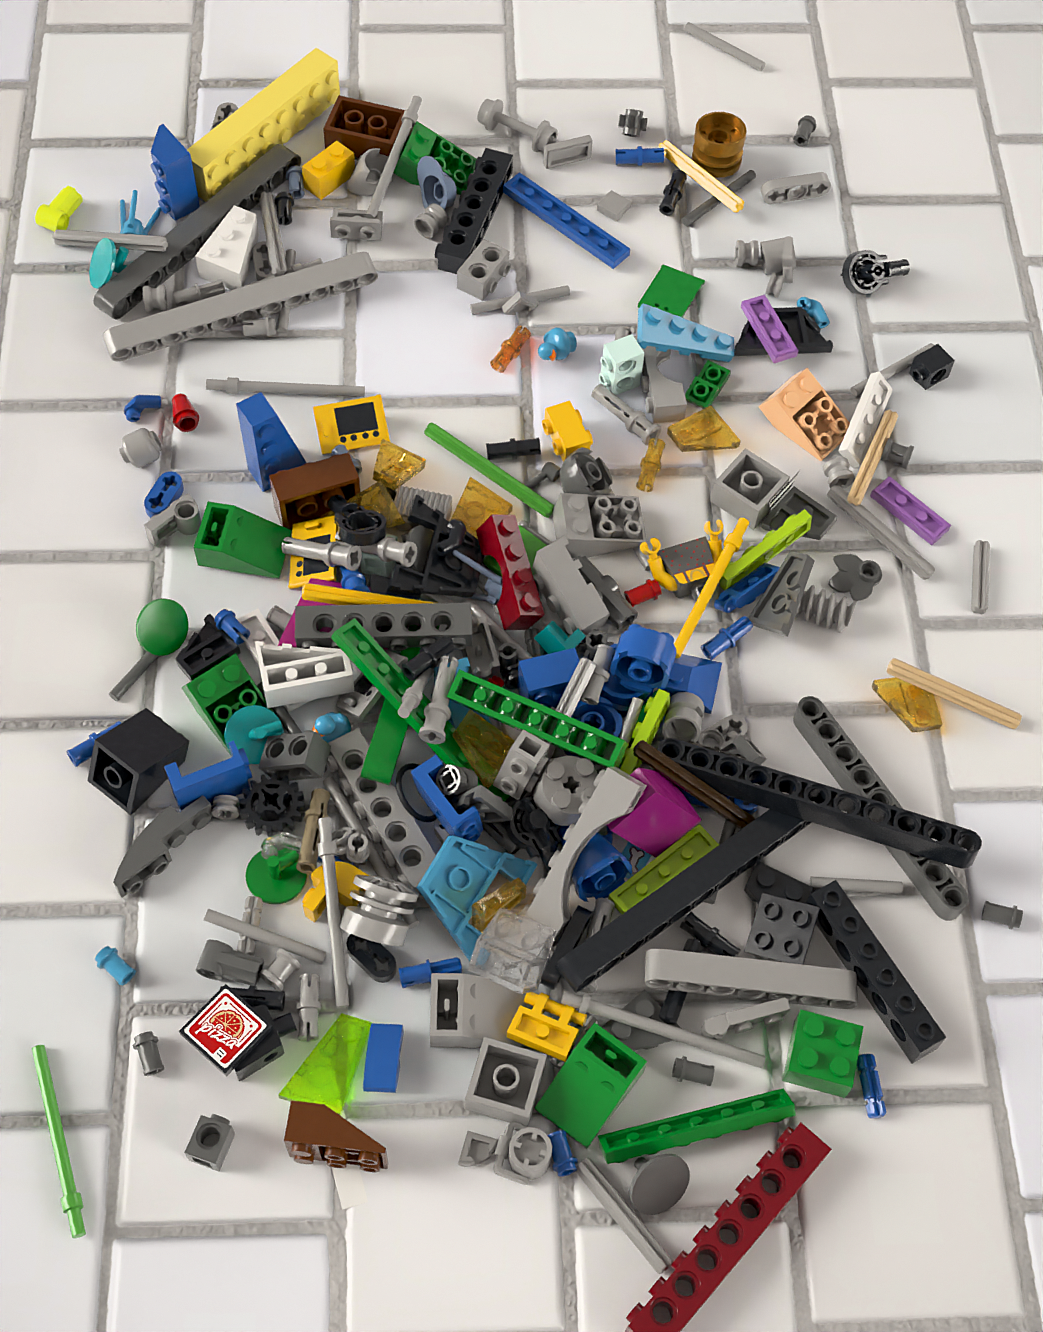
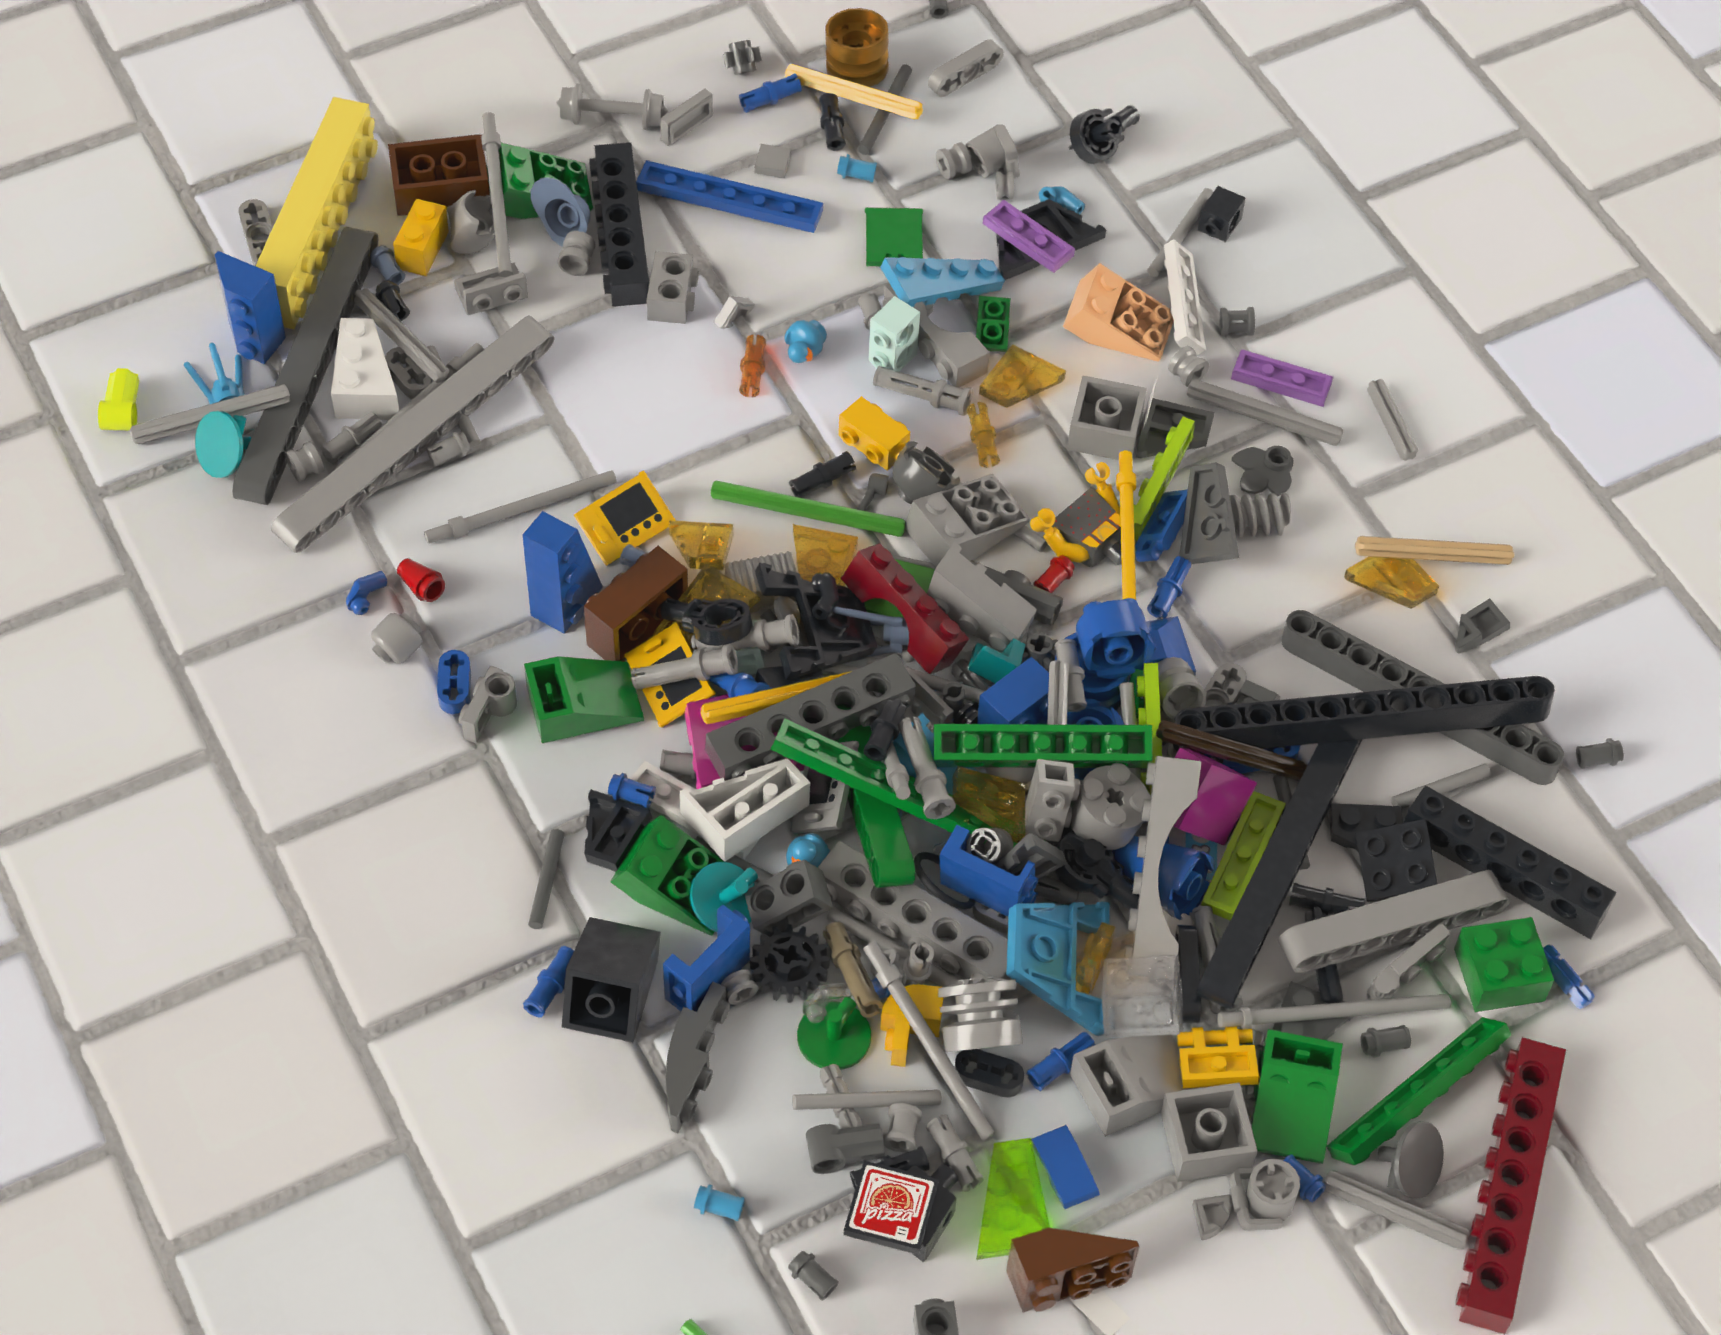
camera: 25 degrees left, 5 degrees down
(162, 627) = (549, 824): green shield -> none
(539, 295) = (708, 319): light grey bar -> none
(671, 233) = (856, 168): none -> dark azure pin
(872, 458) = (1215, 335): tan axle -> none
(960, 769) = (1480, 626): none -> dark grey slope

